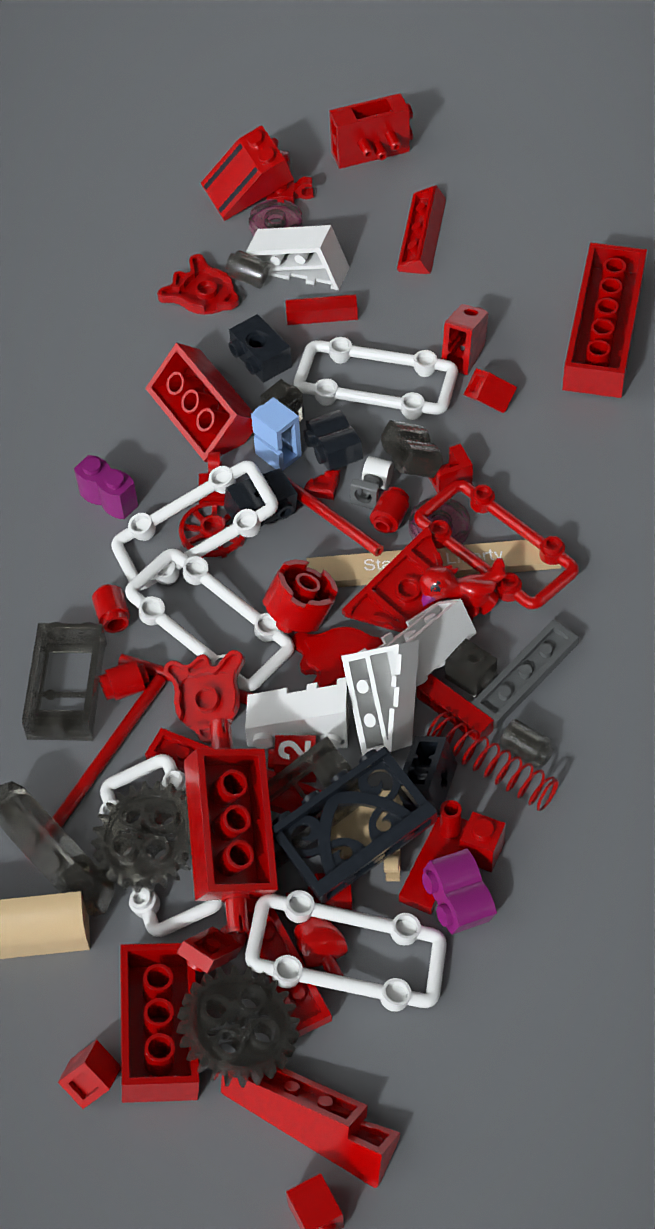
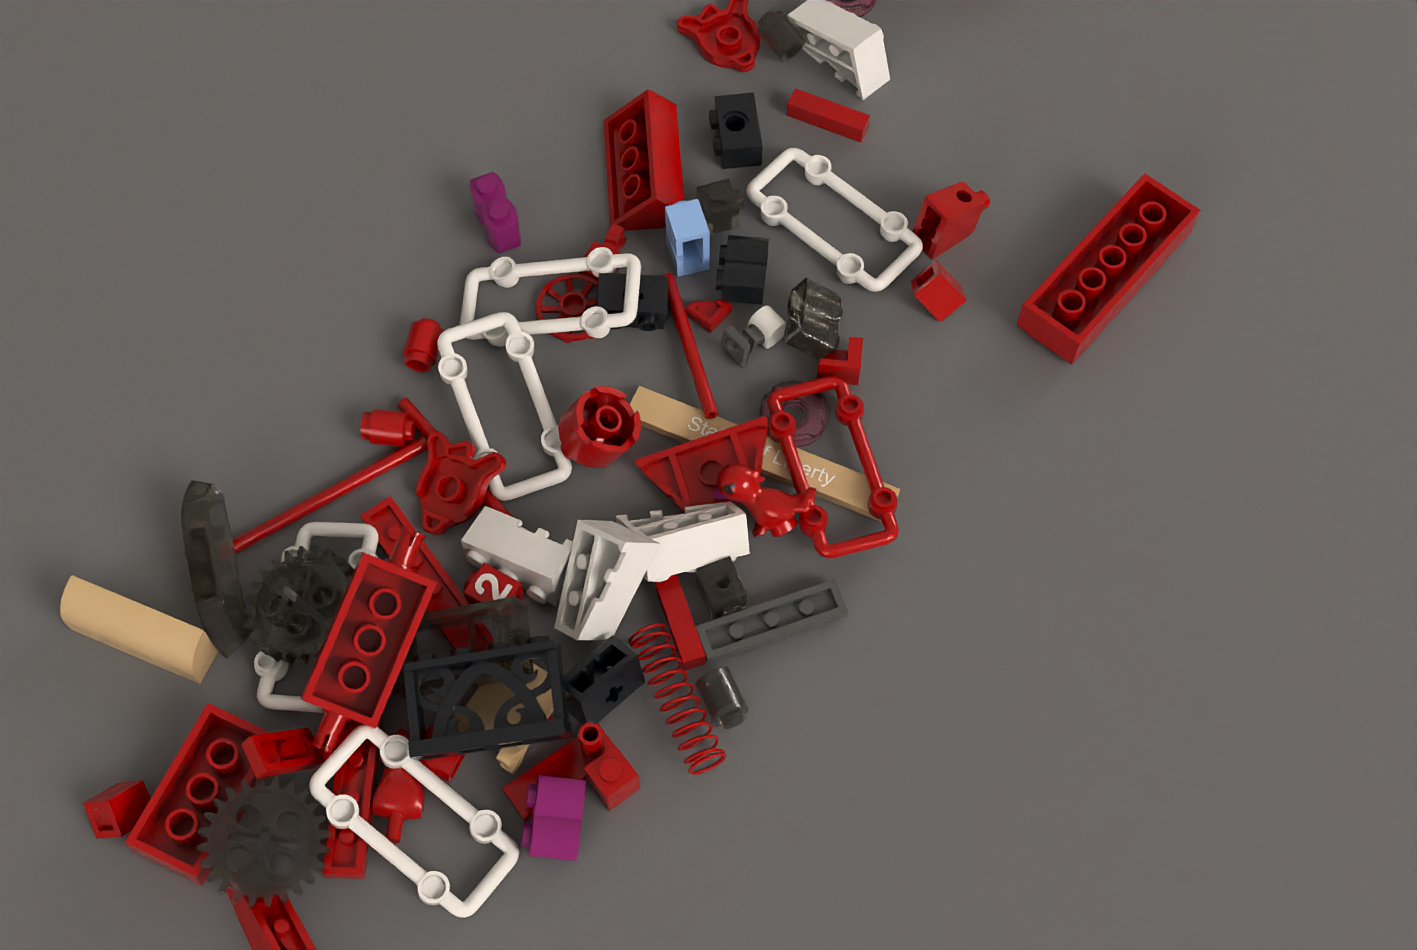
camera: 25 degrees right, 10 degrees up
(63, 724) = (308, 440): clear smoke door -> none
(324, 651) = (601, 499): red tile -> none
(390, 510) = (752, 375): red brick -> none
(422, 231) = (989, 72): red slope -> none

